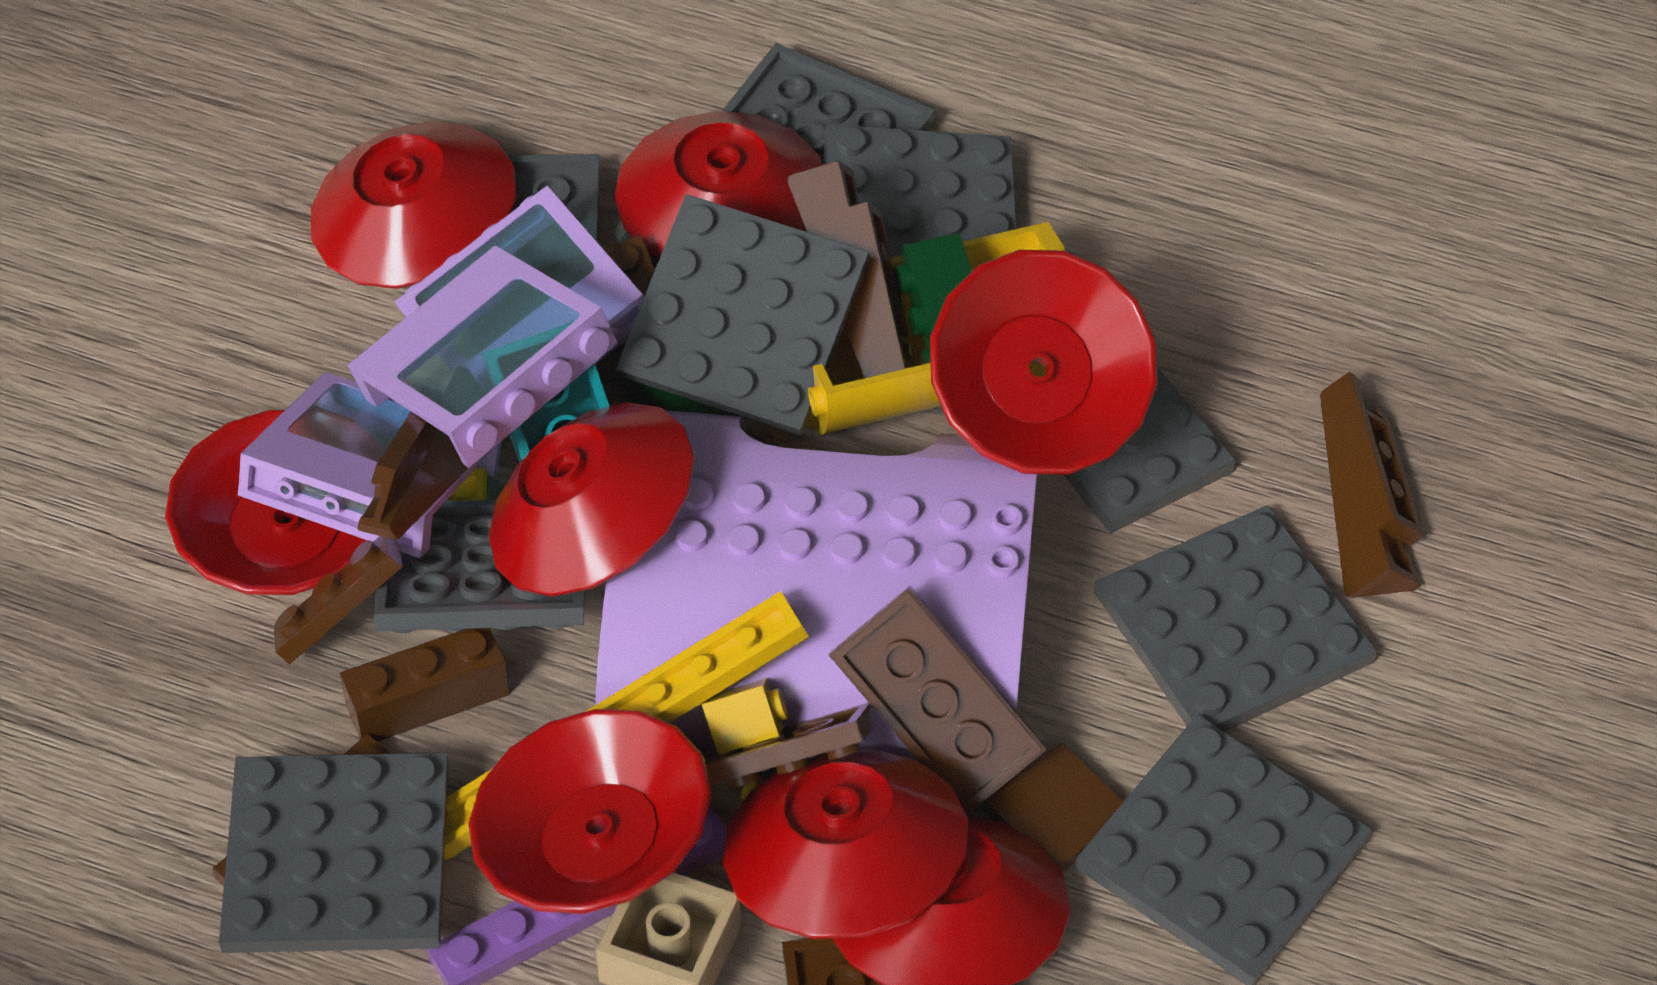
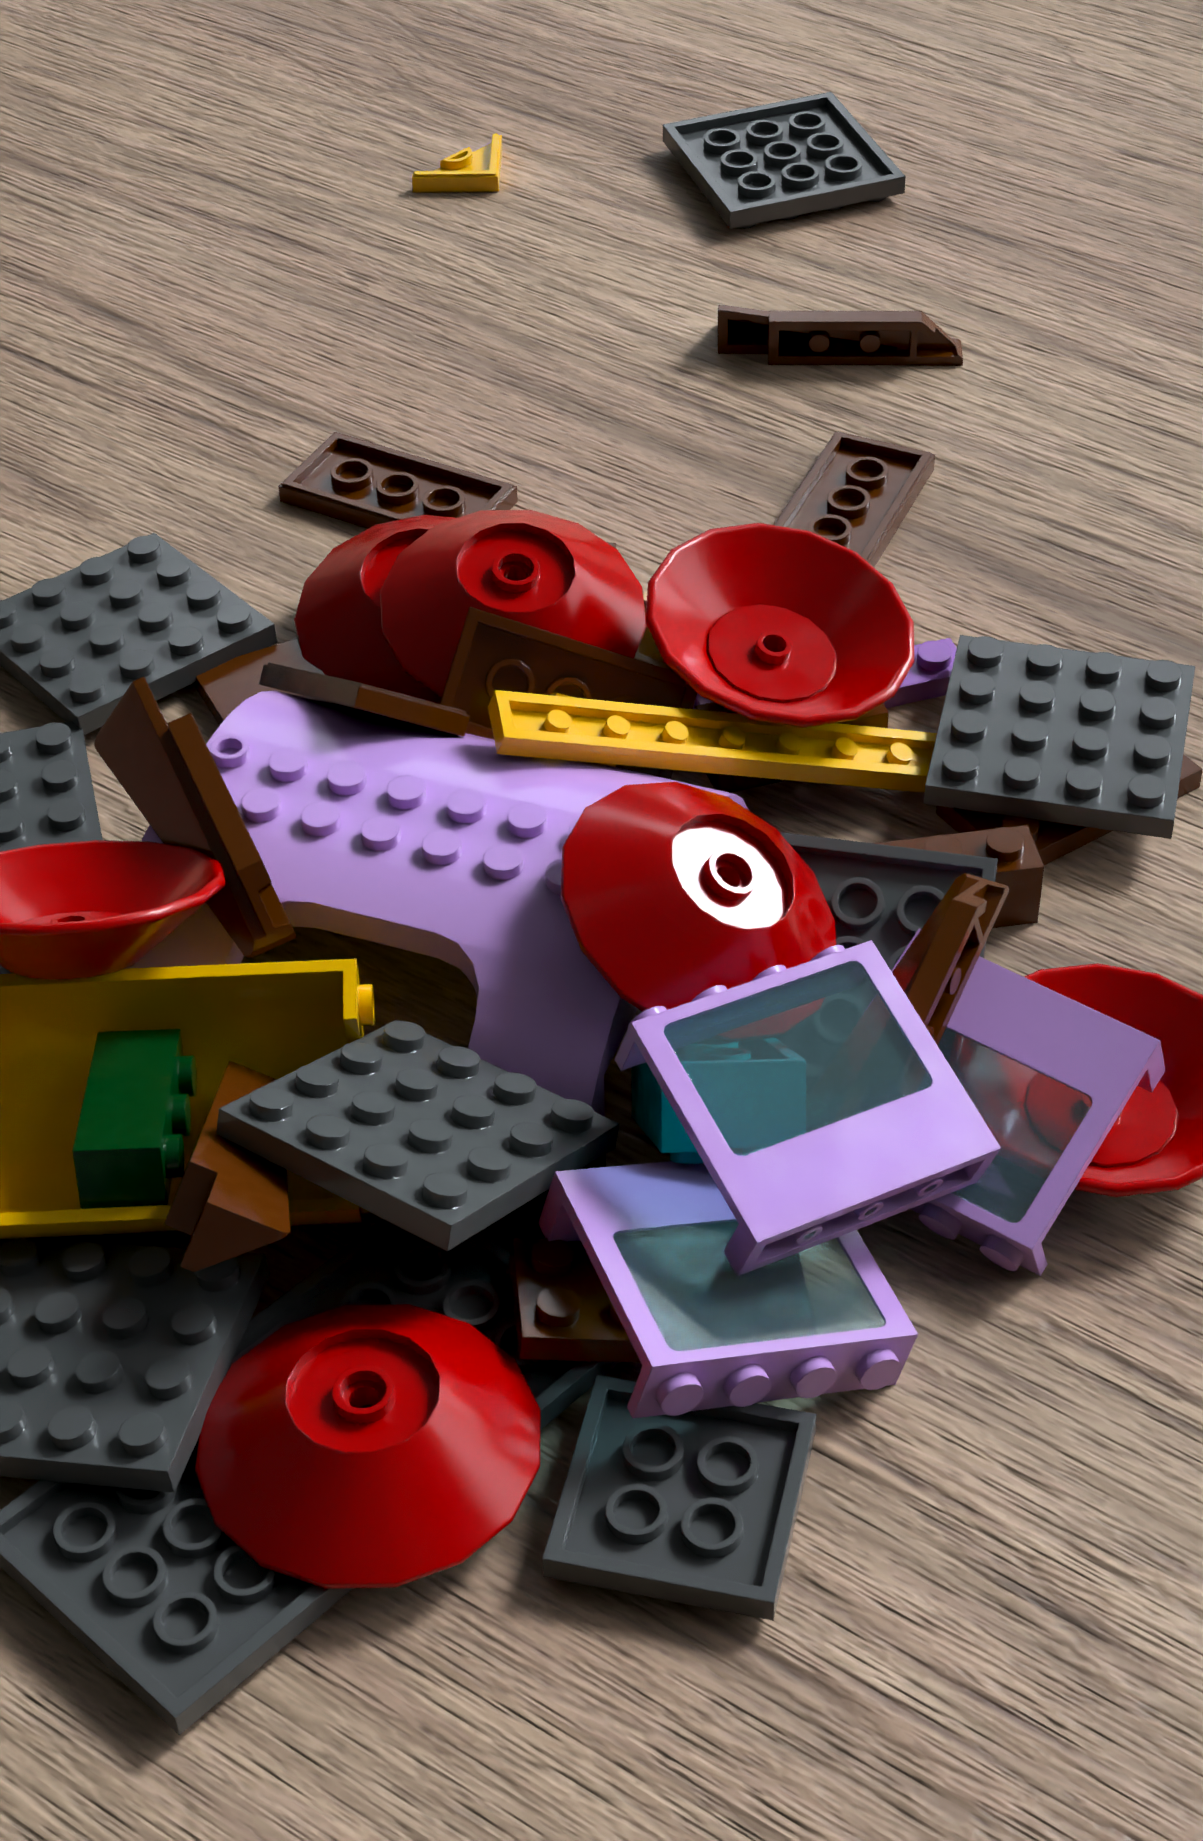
camera: 165 degrees left, 10 degrees down
(336, 597) = (1035, 940): reddish brown plate -> none
(410, 202) = (851, 1590): red dish -> none
(991, 482) = (189, 806): none -> reddish brown wedge

